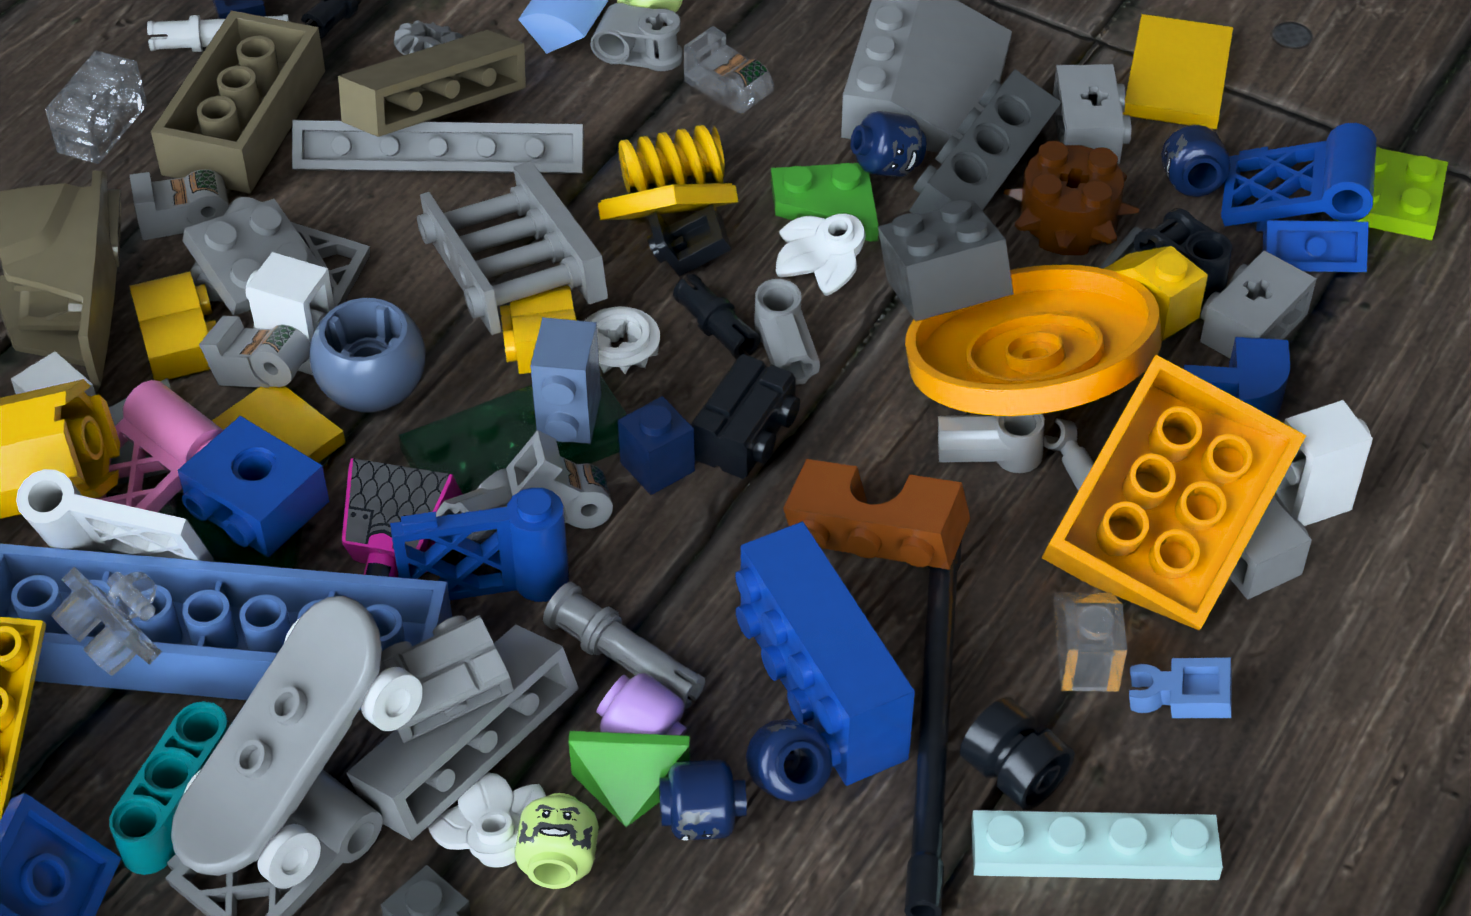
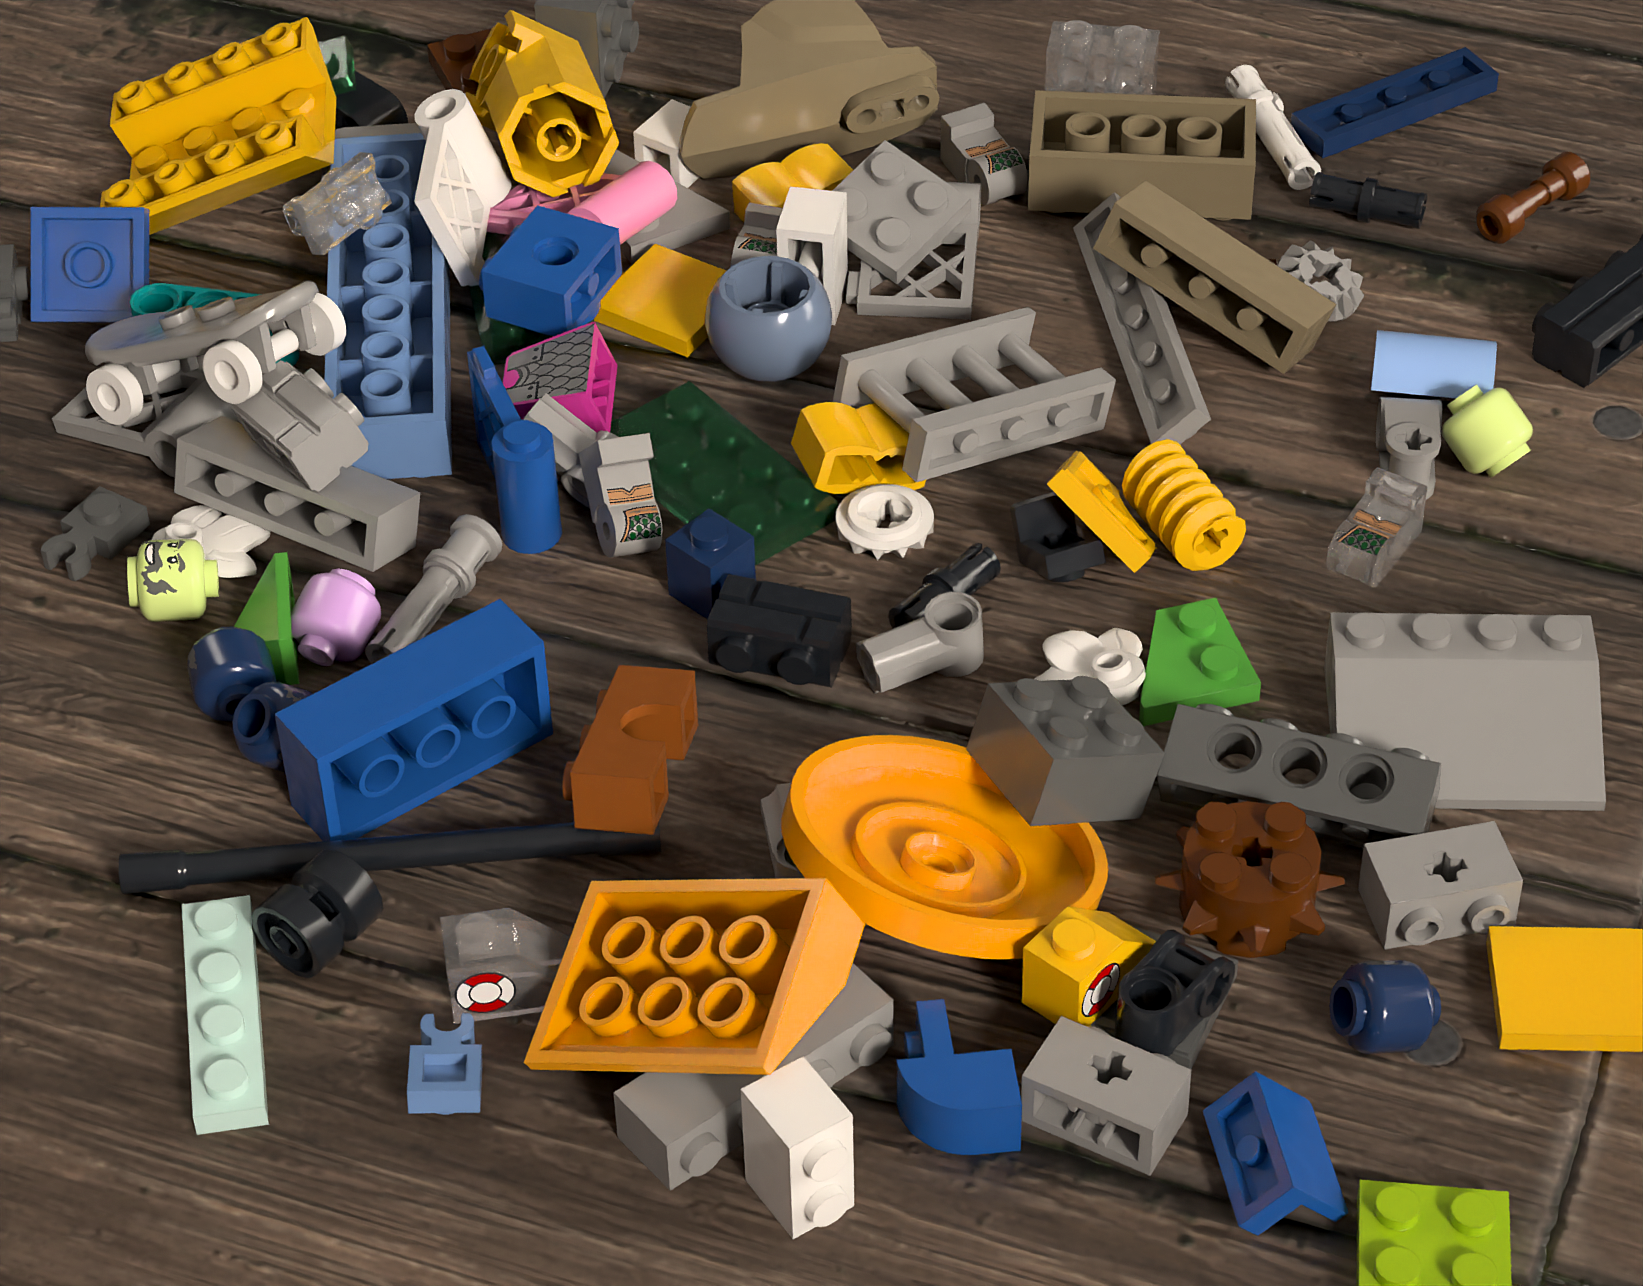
camera: 80 degrees right, 5 degrees down
(566, 379) = (732, 445): sand blue brick -> none
(888, 144) = (1283, 682): dark blue head -> none
(1337, 178) = (1367, 1140): blue piece -> none

